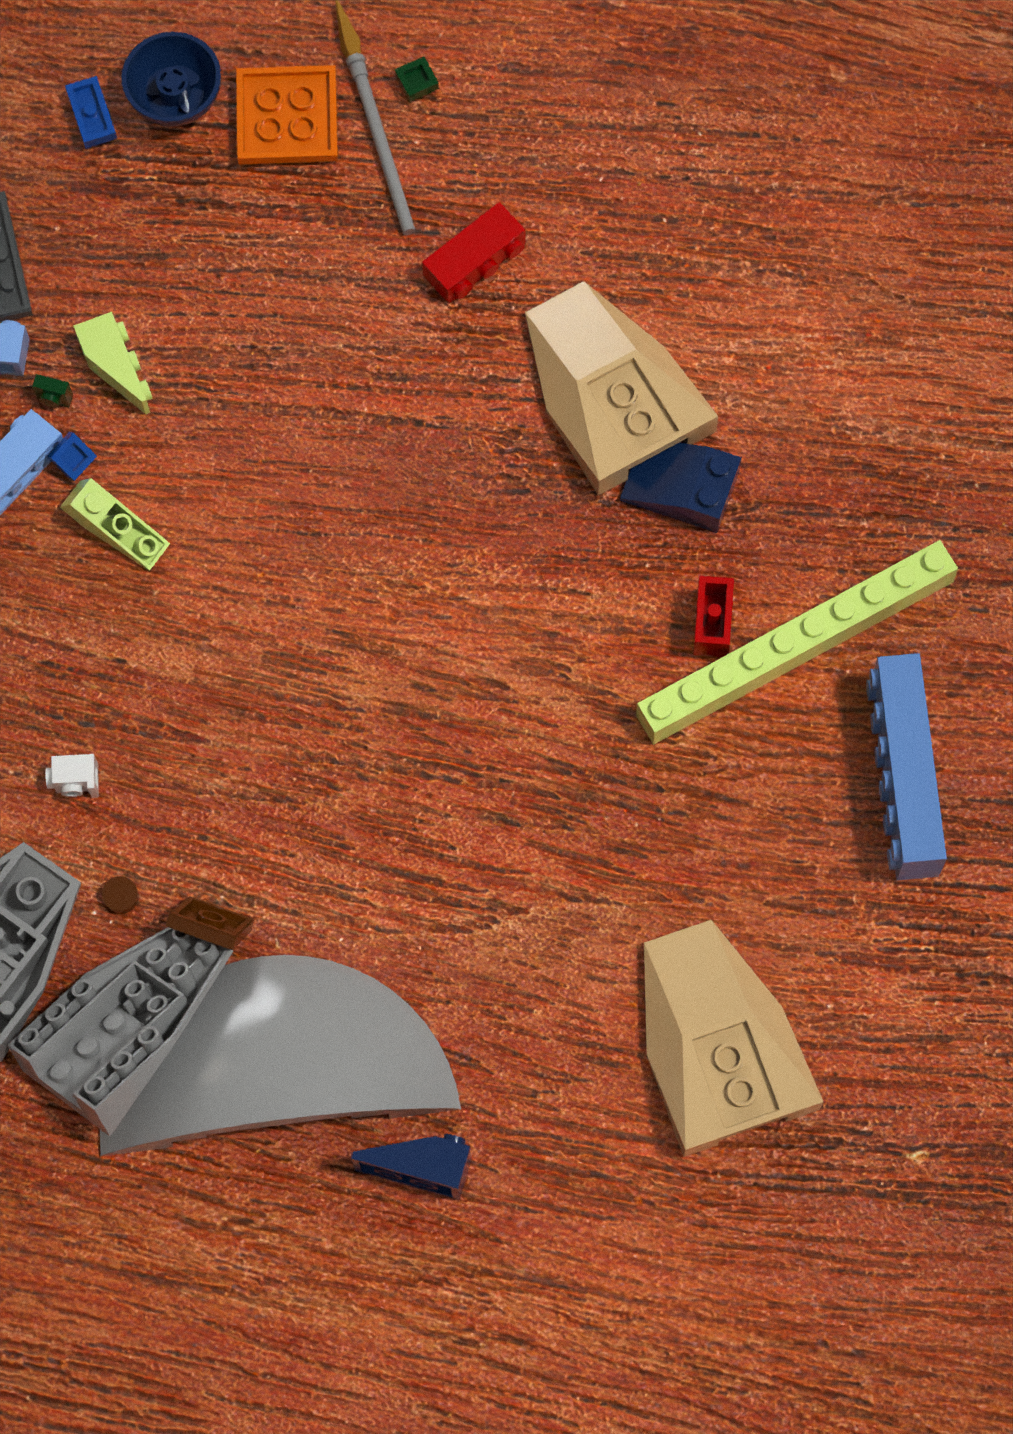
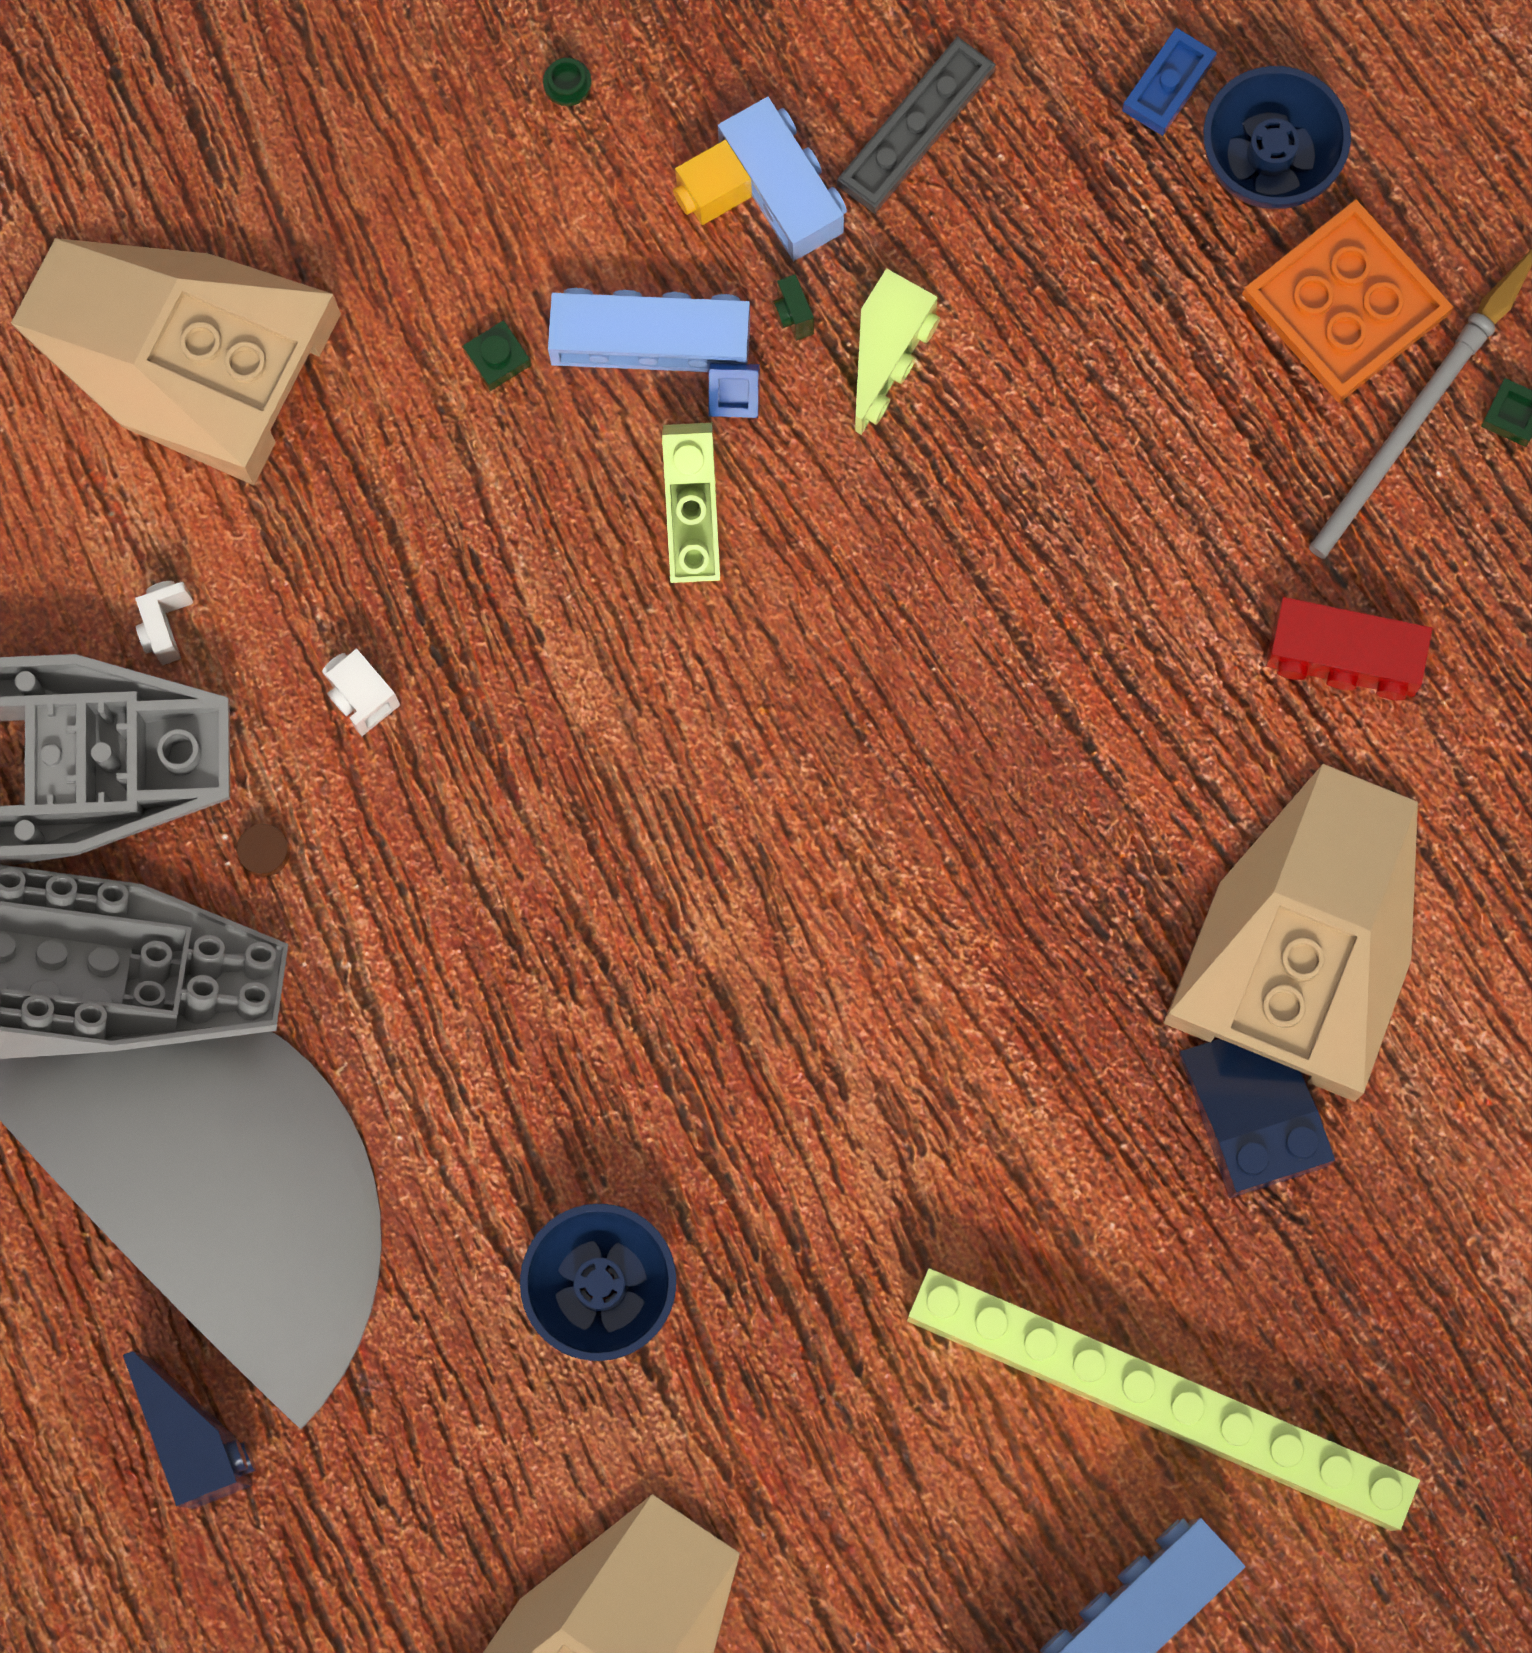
camera: 55 degrees right, 5 degrees up
(210, 922) = (295, 977): reddish brown tile -> none
(509, 862) = (574, 1255): none -> dark blue piece
(713, 616) = (1111, 1275): red brick -> none

